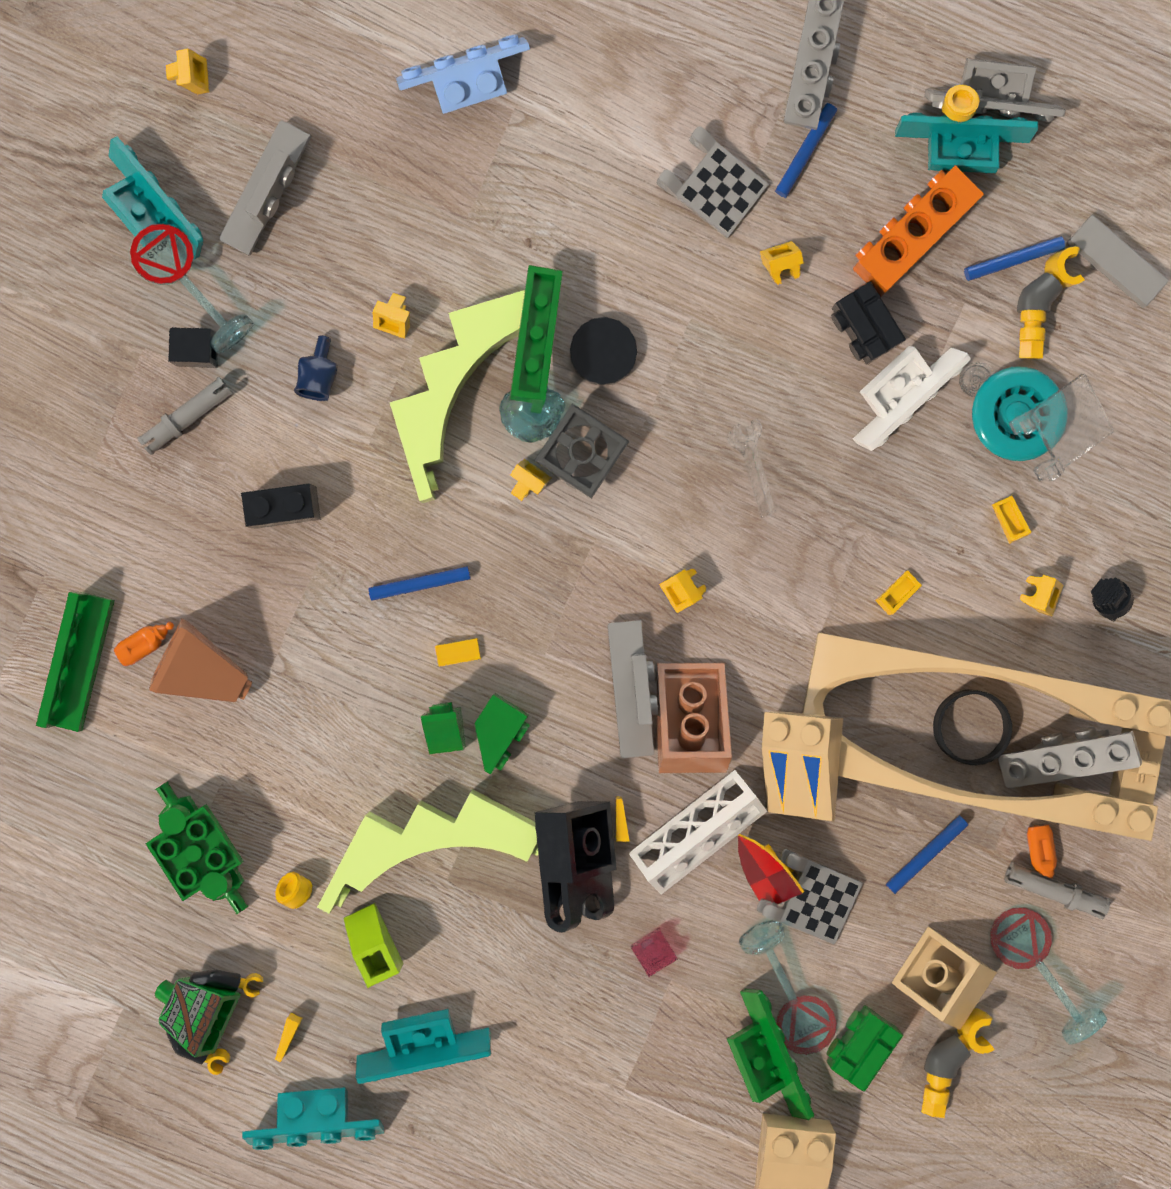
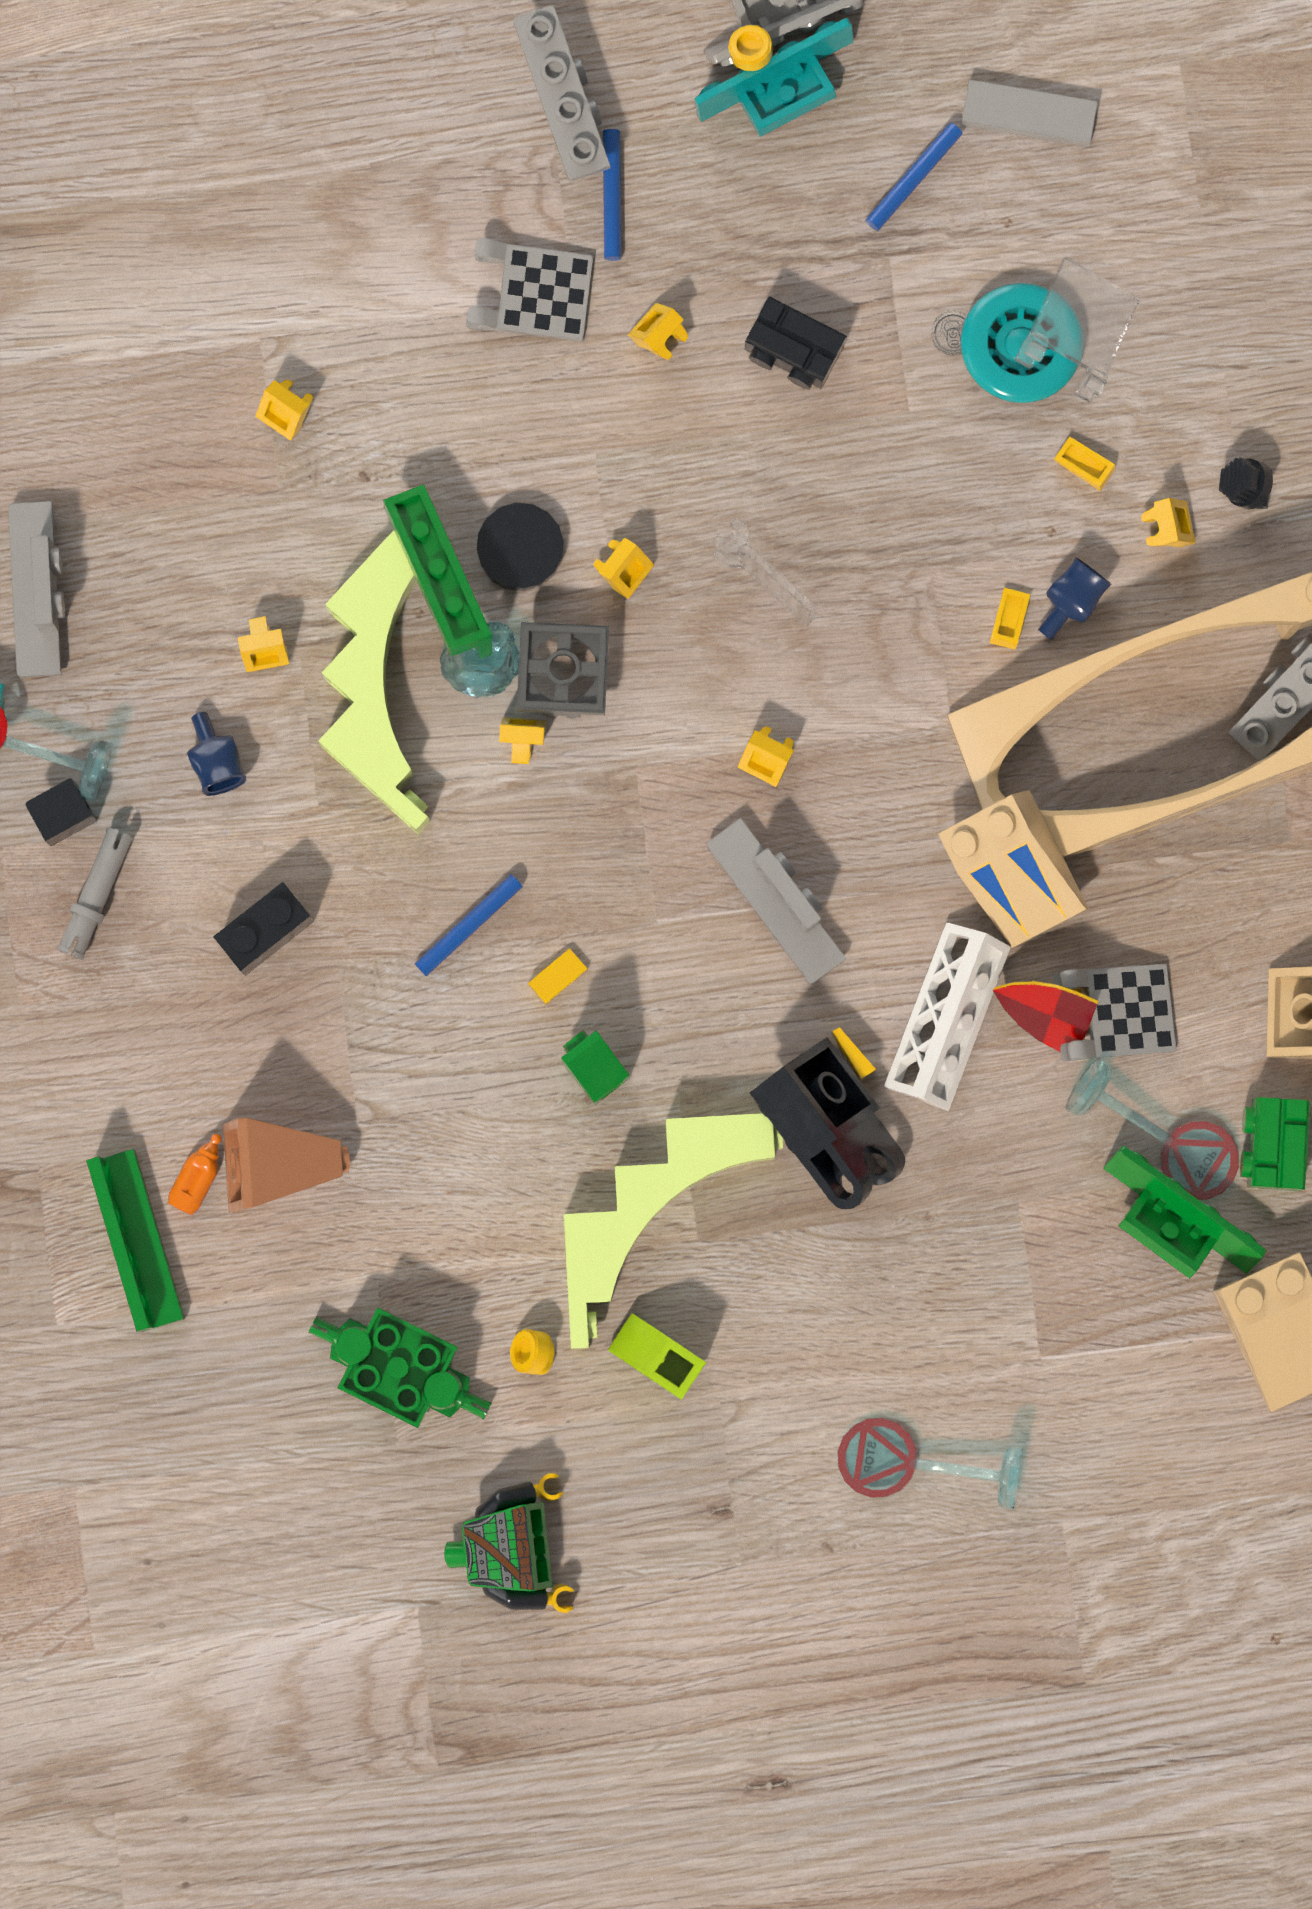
camera: 35 degrees left, 5 degrees down
(290, 1029) = (622, 1511): yellow piece -> none
(313, 1117) = (708, 1598): teal bracket -> none
(420, 1045) = (778, 1437): teal bracket -> none
(466, 78) = (188, 336): light blue bracket -> none
(479, 1096) = (881, 1459): none -> clear light blue piece
(496, 729) = (652, 1034): green slope -> none
(500, 164) = (283, 408): none -> yellow tile
(654, 952) = (980, 1180): clear pink tile -> none
(664, 407) = (625, 567): none -> yellow tile
(692, 718) = (864, 892): nougat slope -> none
(903, 389) = (877, 390): white bracket -> none
(927, 854) = (1218, 889): blue bar -> none
(950, 605) = (1073, 596): none -> dark blue piece
(958, 196) = (812, 147): orange brick -> none
(1006, 735) = (1208, 681): black tyre -> none
(1037, 300) = (965, 206): yellow piece -> none

